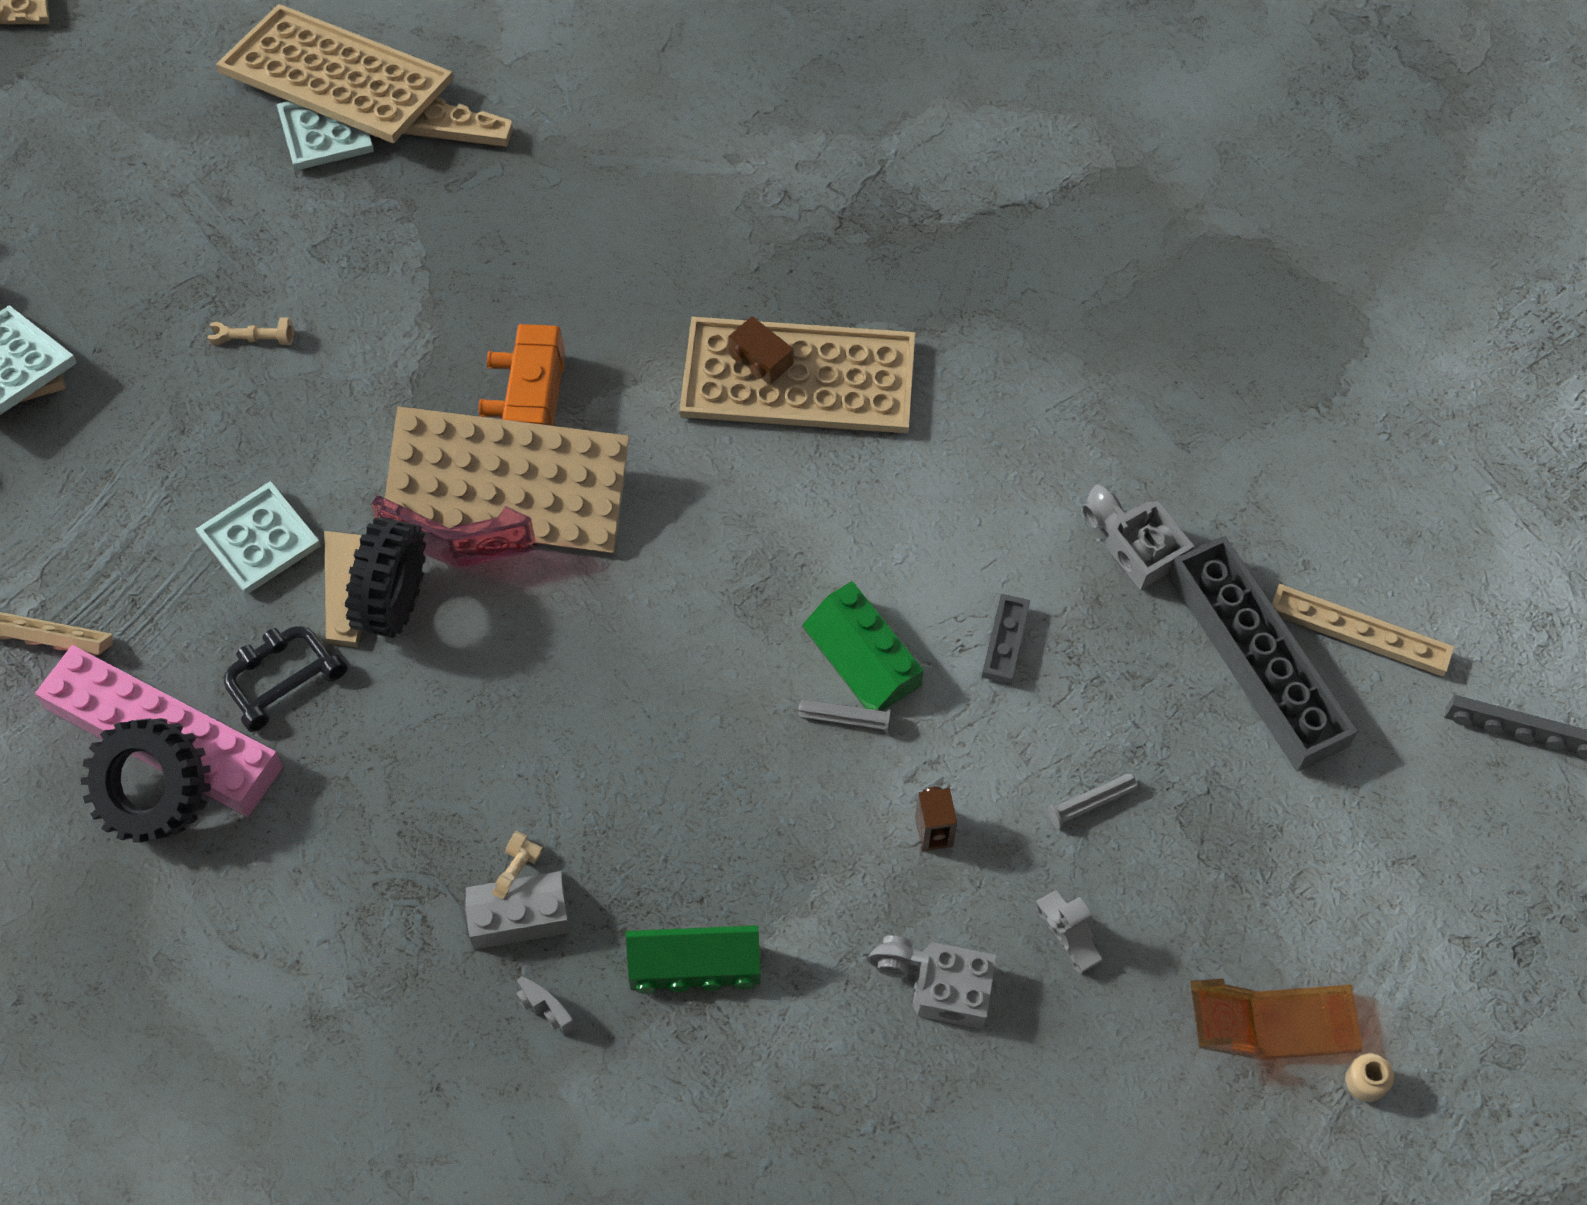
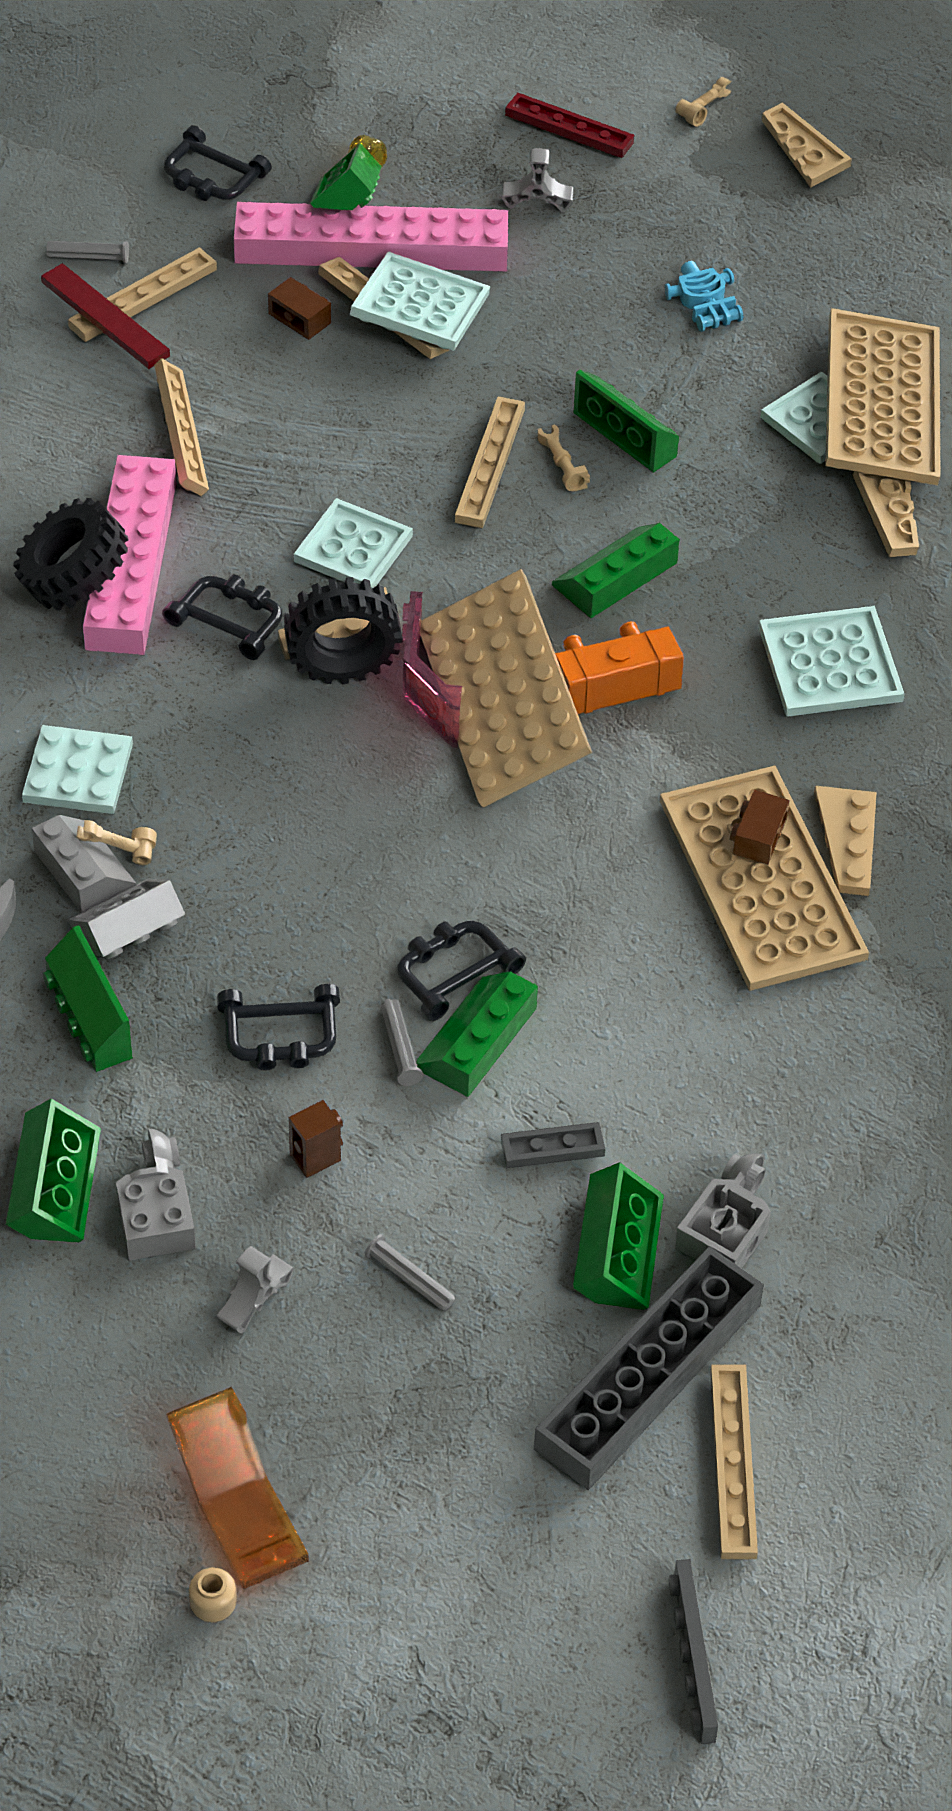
camera: 65 degrees right, 10 degrees down
(124, 157) = (705, 295): none -> medium azure piece
(224, 390) = (490, 462): none -> tan plate
(245, 269) = (623, 422): none -> green slope
(397, 875) = (77, 769): none -> light aqua plate
(405, 342) = (619, 568): none -> green slope
(597, 233) = (831, 661): none -> light aqua plate
(601, 891) = (129, 916): none -> slope
(753, 659) = (421, 951): none -> black bar
(777, 294) = (849, 835): none -> tan wing
(813, 829) = (325, 999): none -> black bar
(871, 1061) = (53, 1174): none -> green slope
(1121, 628) = (618, 1239): none -> green slope

